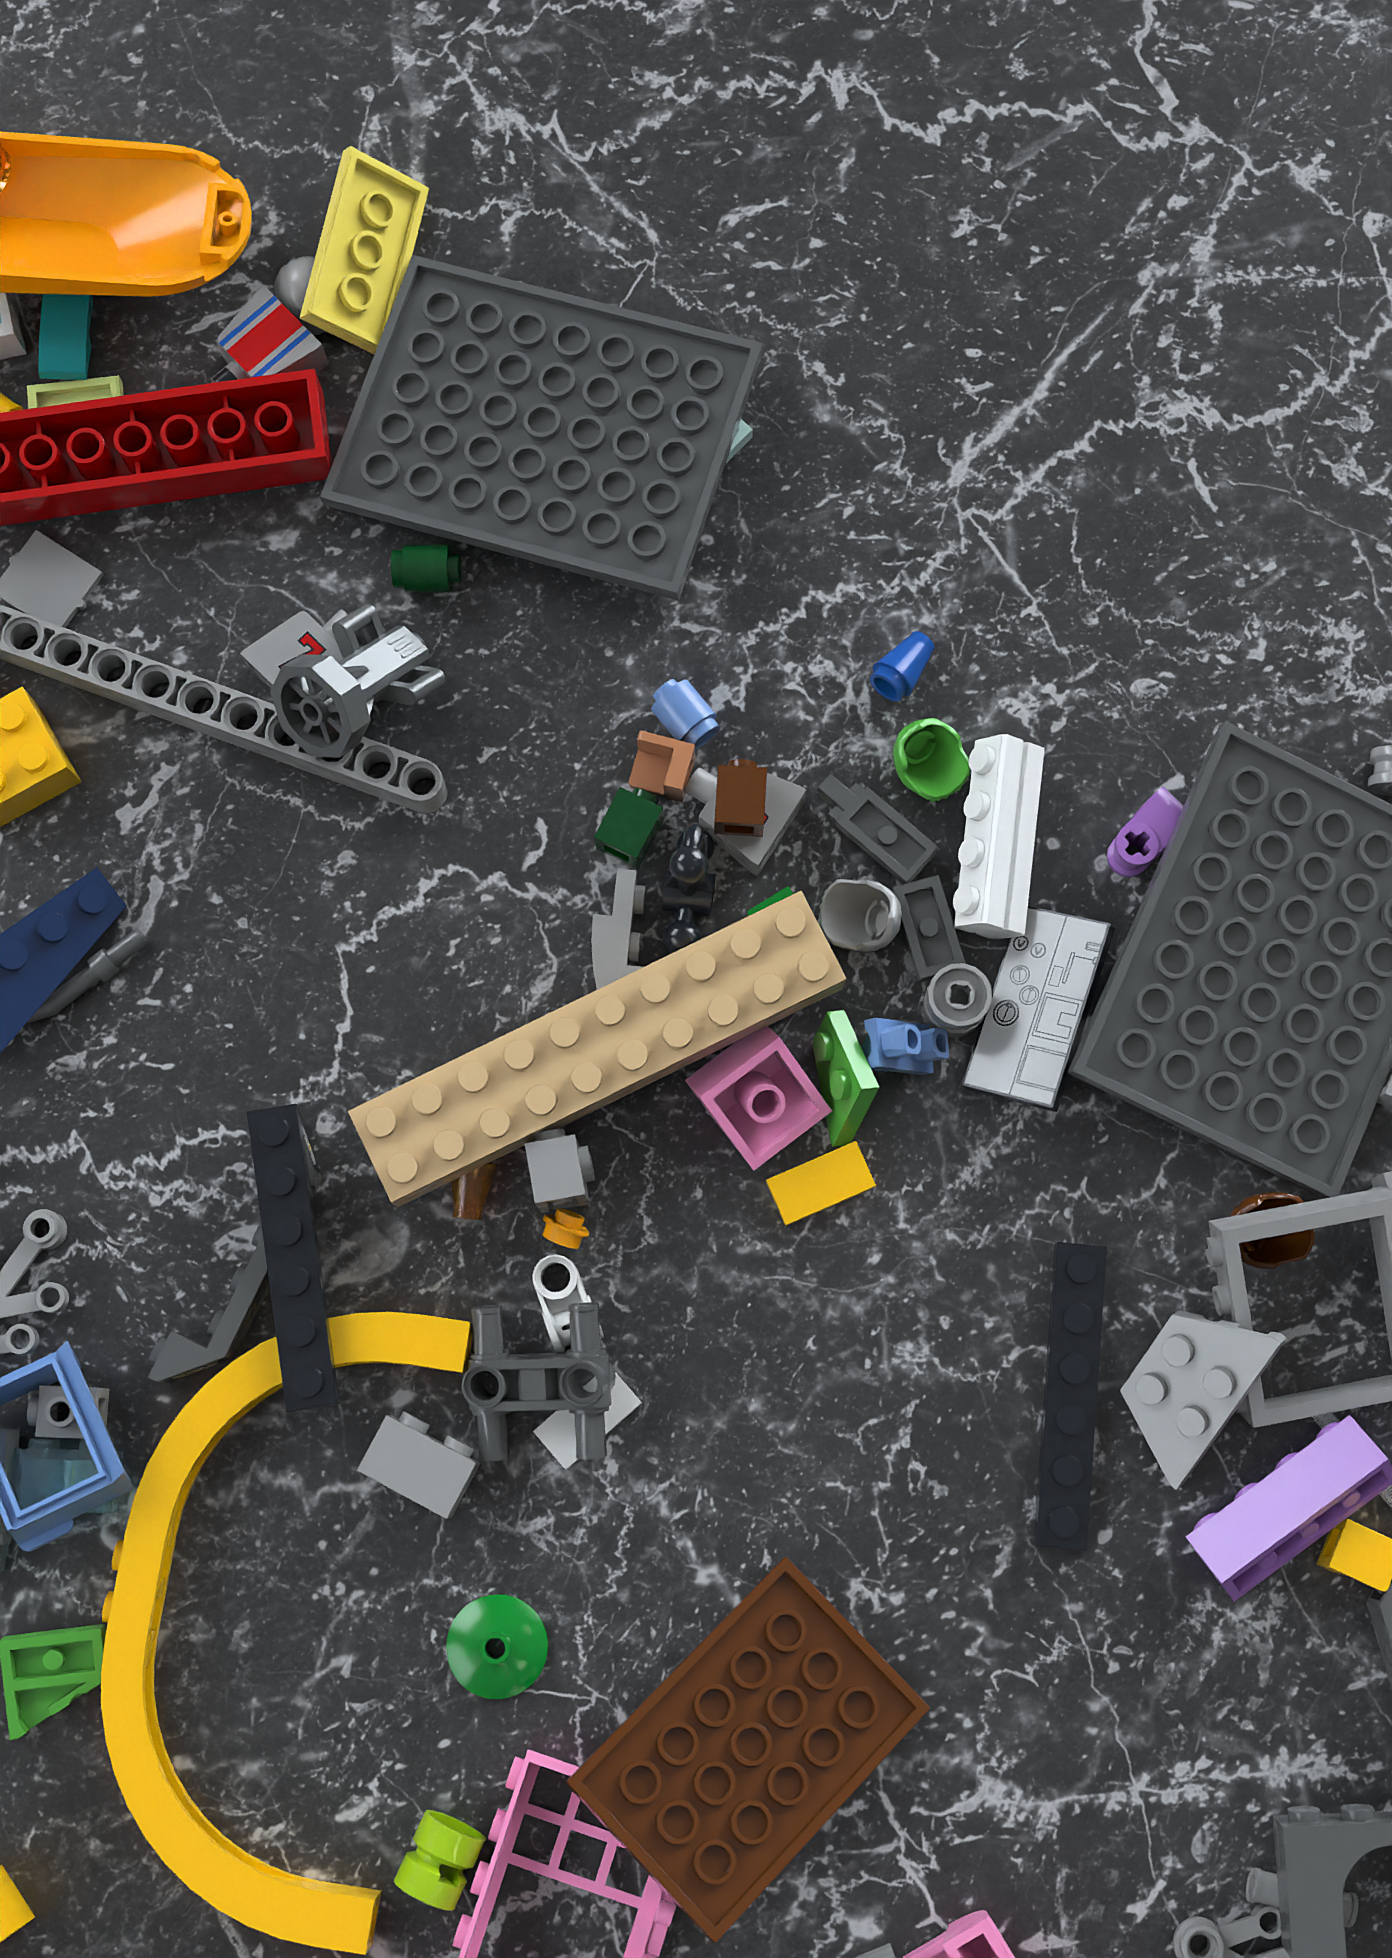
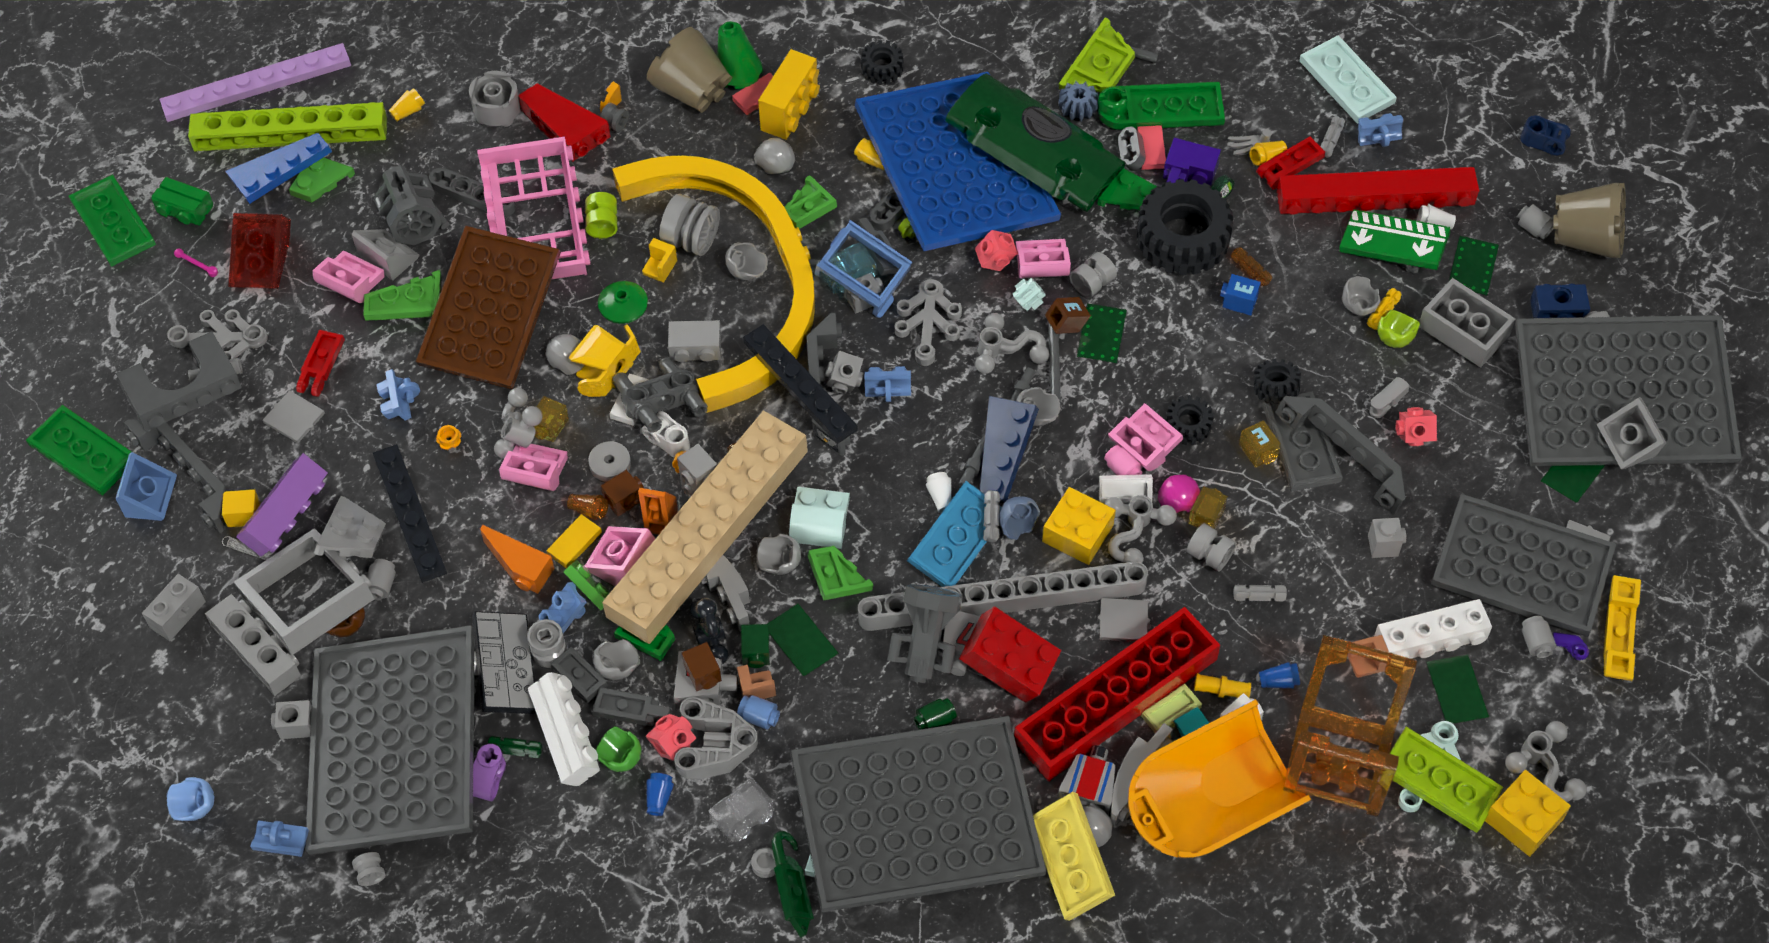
camera: 150 degrees right, 20 degrees down
(47, 1826) = (774, 156): none -> light grey hair
(91, 830) = (1018, 516): none -> sand blue hair
(133, 843) = (991, 516): none -> light grey axle
(145, 1190) = (887, 382): none -> medium blue hips
(182, 946) = (940, 489): none -> white cone
(188, 340) = (1136, 755): none -> light grey slope
(203, 1251) = (844, 372): none -> light grey brick
(206, 848) = (953, 538): none -> dark azure tile
(236, 1594) = (745, 261): none -> light grey hair
(258, 580) = (1010, 654): none -> red brick
(292, 1727) = (689, 224): none -> light grey wheel
(388, 1693) = (661, 260): none -> yellow panel
(401, 1002) = (819, 517): none -> light aqua brick
(436, 887) = (835, 574): none -> bright green wing
(508, 962) = (778, 554): none -> light grey hair
(551, 816) = (801, 640): none -> dark green sticker
(598, 1516) = (601, 357): none -> yellow piece
(652, 1577) = (558, 353): none -> light grey hair
(655, 1143) = (657, 509): none -> orange slope
(693, 1287) = (608, 451): none -> light grey piece
(696, 1225) = (622, 492): none -> reddish brown brick
(754, 1445) = (553, 420): none -> clear yellow brick
(765, 1234) = (589, 505): none -> clear orange cone
(781, 424) = (791, 885): none -> dark green plate
(790, 668) = (721, 746): none -> light grey connector
(793, 570) = (742, 811): none -> clear brick
(799, 486) = (763, 863): none -> light grey tile
(819, 1435) = (517, 427): none -> light grey piece
(822, 1359) = (534, 466): none -> bright pink brick
(839, 736) = (671, 735): none -> coral brick
(887, 1869) = (405, 301): none -> bright green wing
(925, 1511) = (448, 432): none -> light orange plate
(929, 1180) = (523, 563): none -> orange slope
(988, 1649) = (401, 394): none -> medium blue hips
(1084, 862) = (517, 746): none -> dark green axle
(1099, 1814) = (320, 361): none -> red hinge
(1177, 1277) = (381, 576): none -> light grey brick
(1192, 1719) = (293, 416): none -> light grey piece

